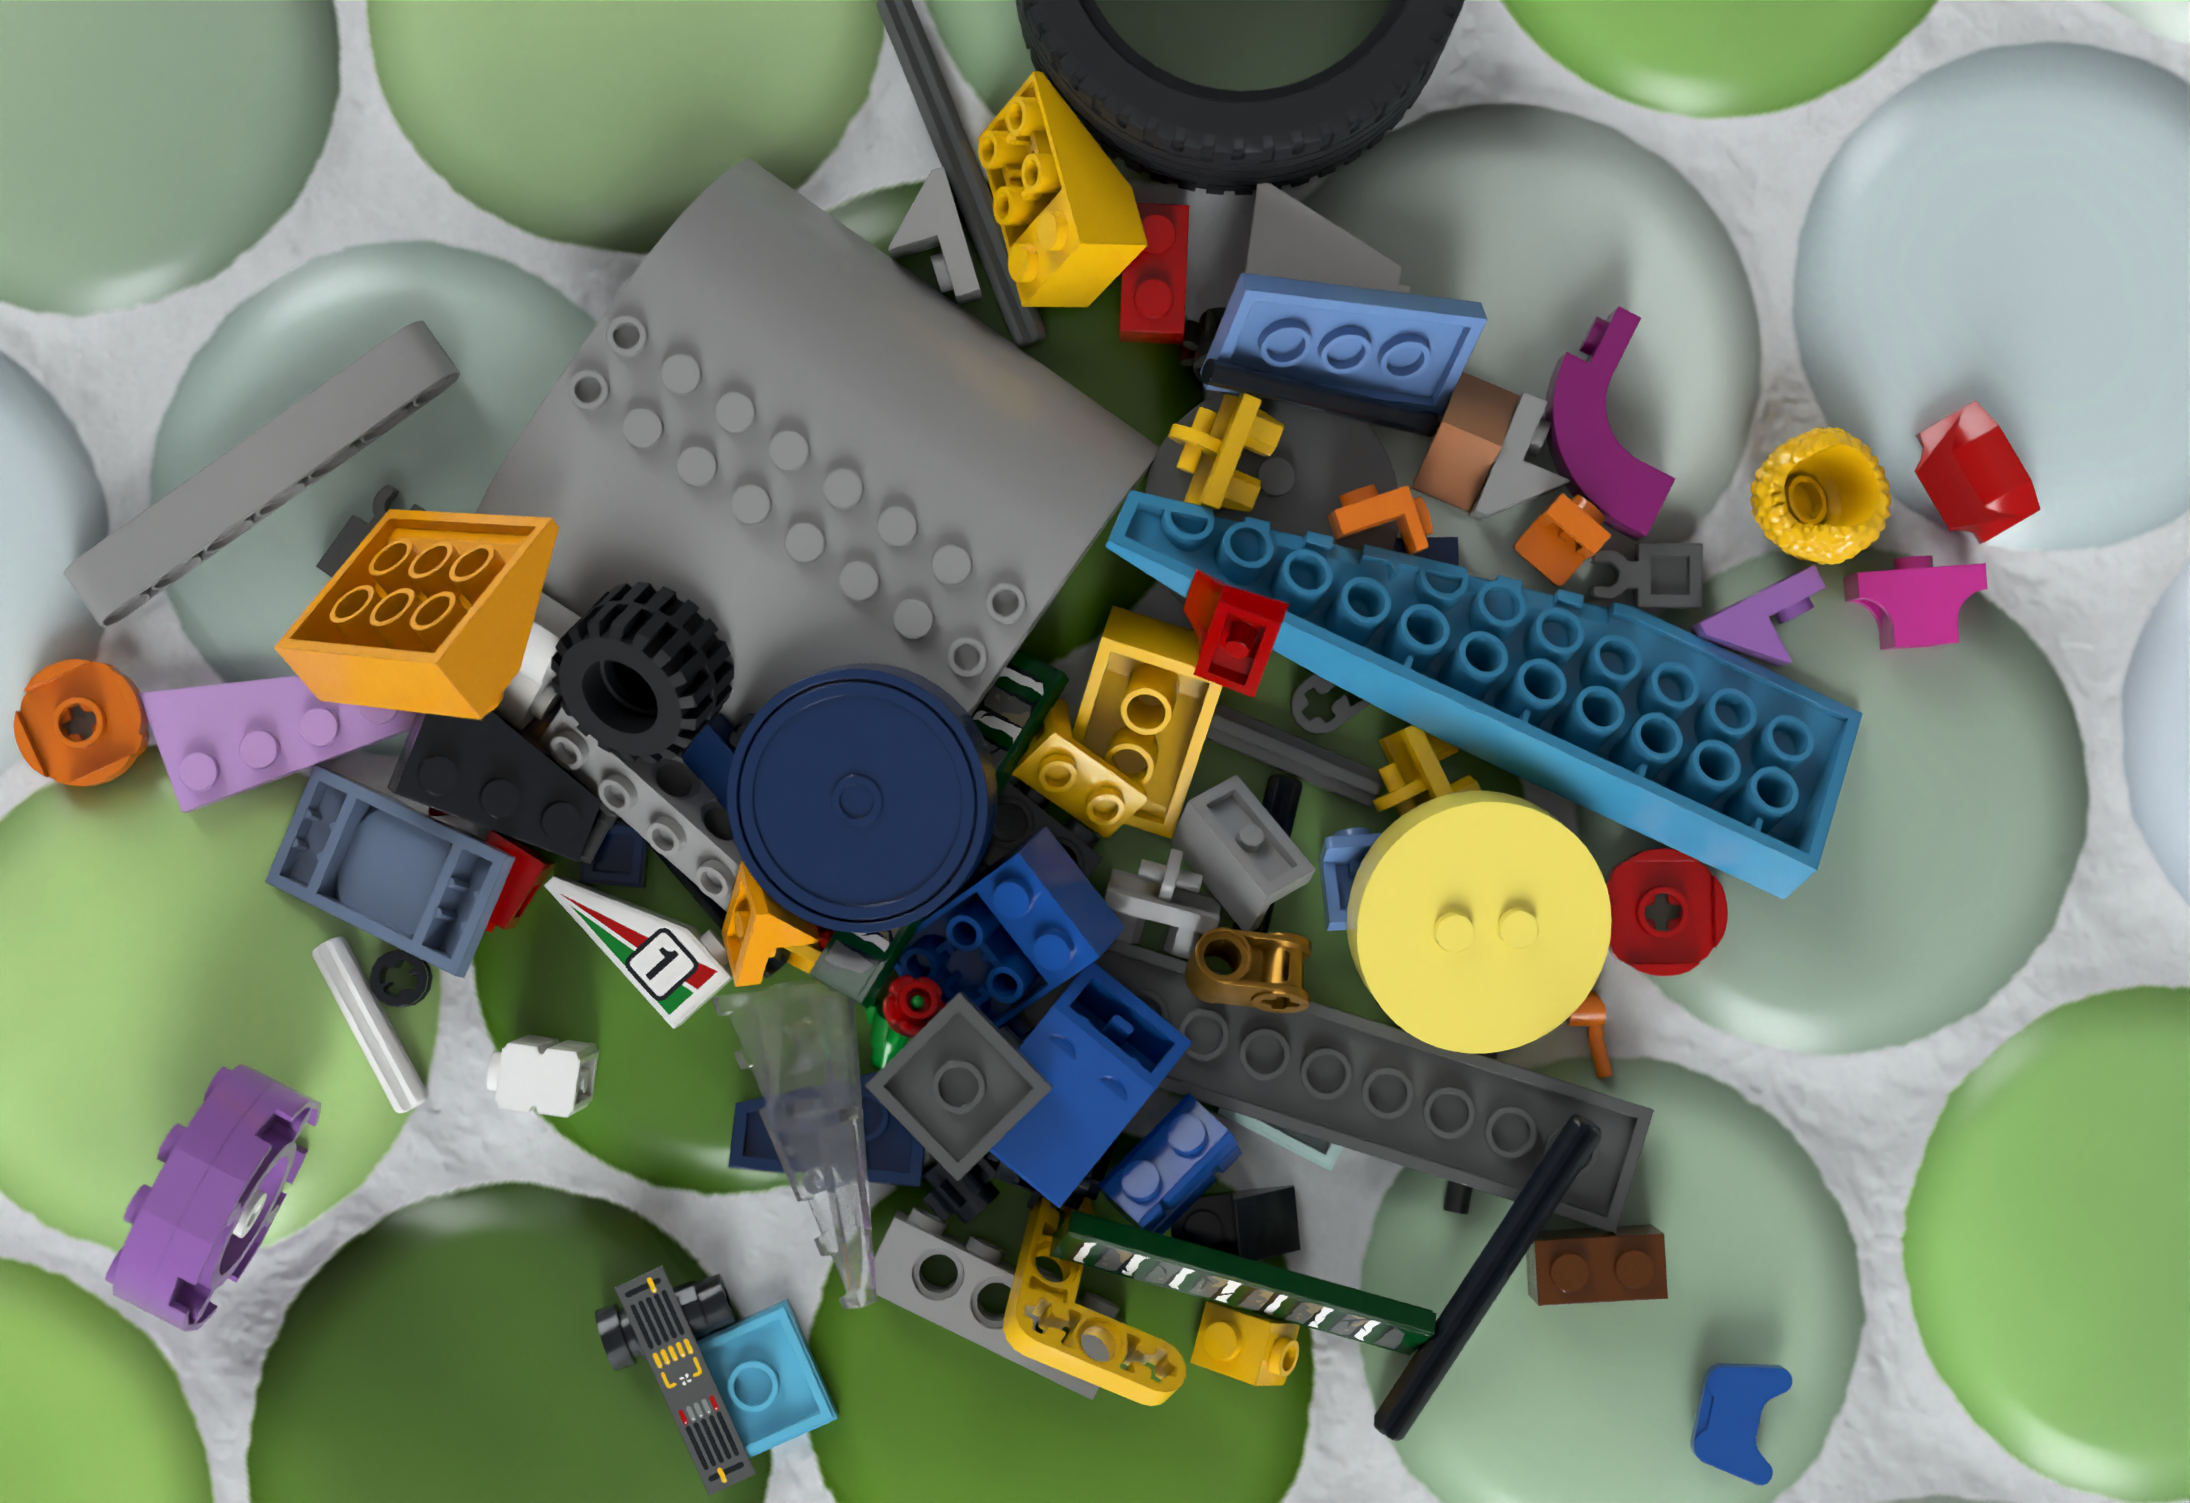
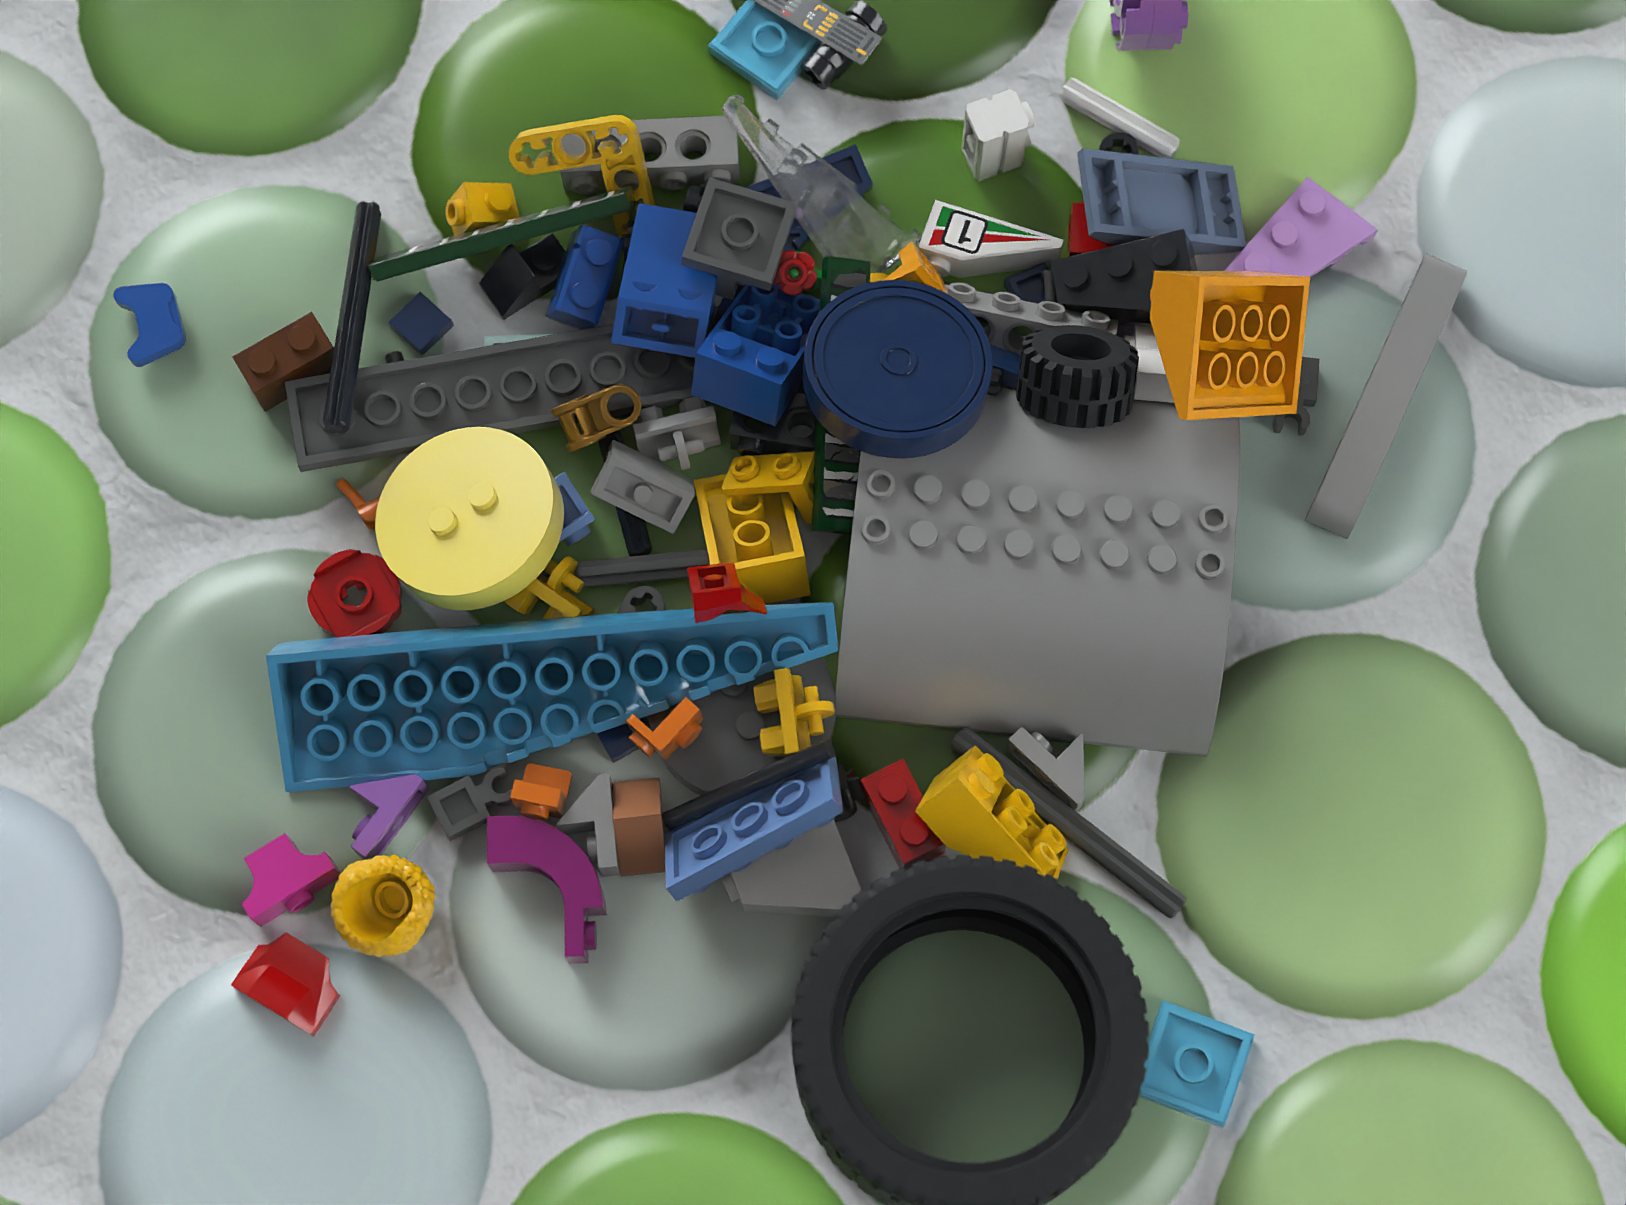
camera: 155 degrees right, 15 degrees down
(47, 708) = (1394, 172): orange plate -> none
(1400, 1232) = (421, 323): none -> dark blue tile

